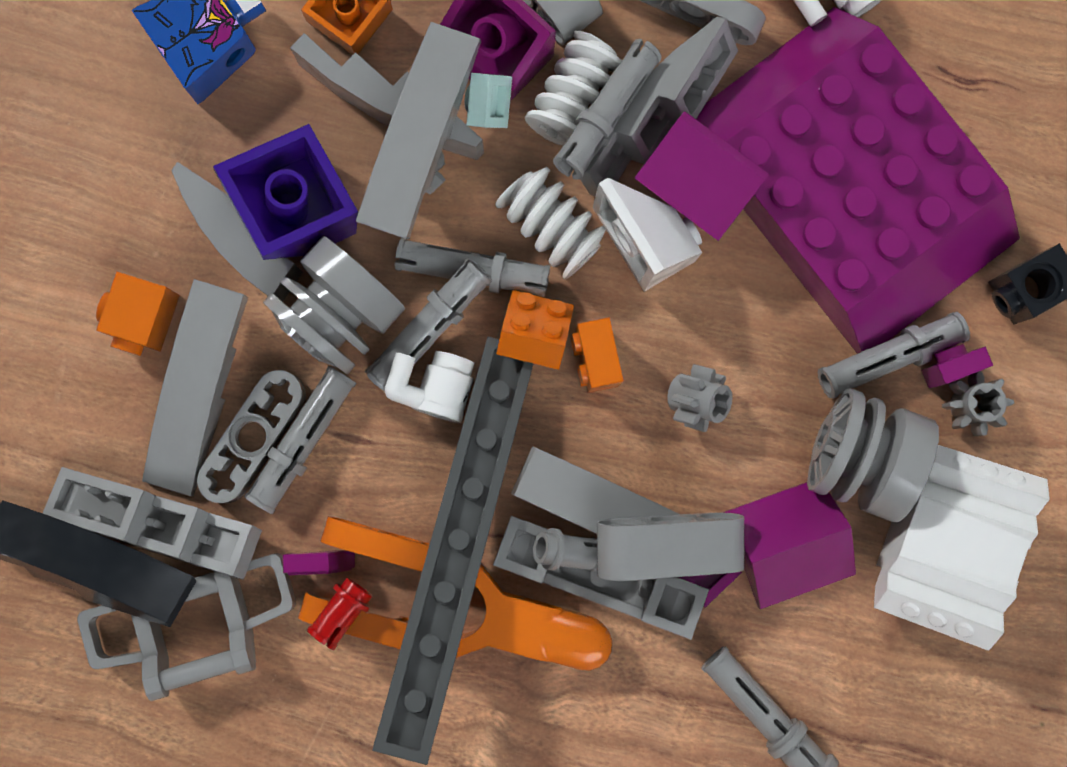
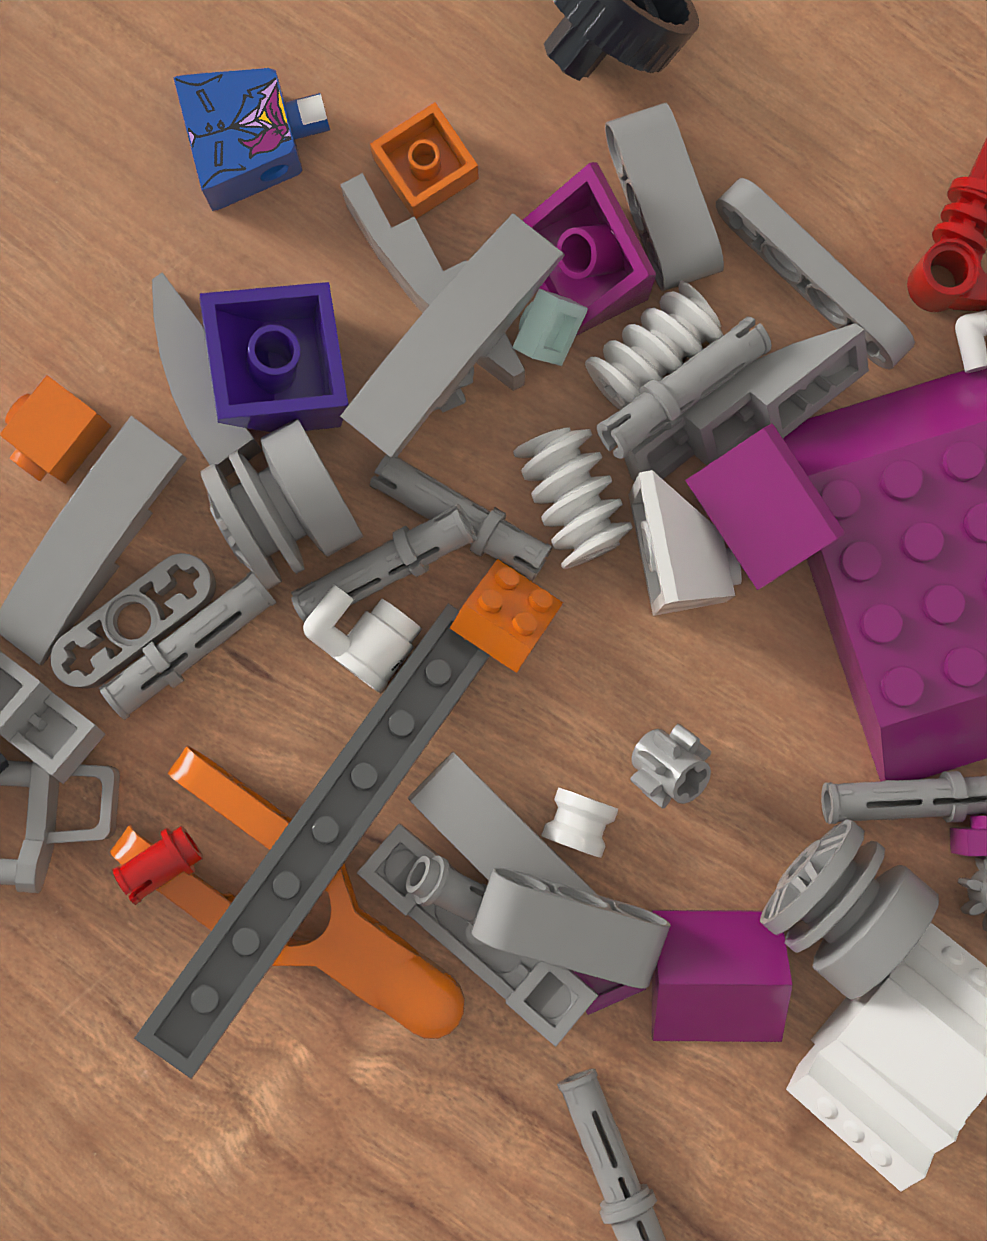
camera: 30 degrees right, 0 degrees up
(318, 562) = (156, 795): magenta tile -> none
(598, 355) = (569, 672): orange piece -> none
(646, 465) = (579, 822): none -> white wheel

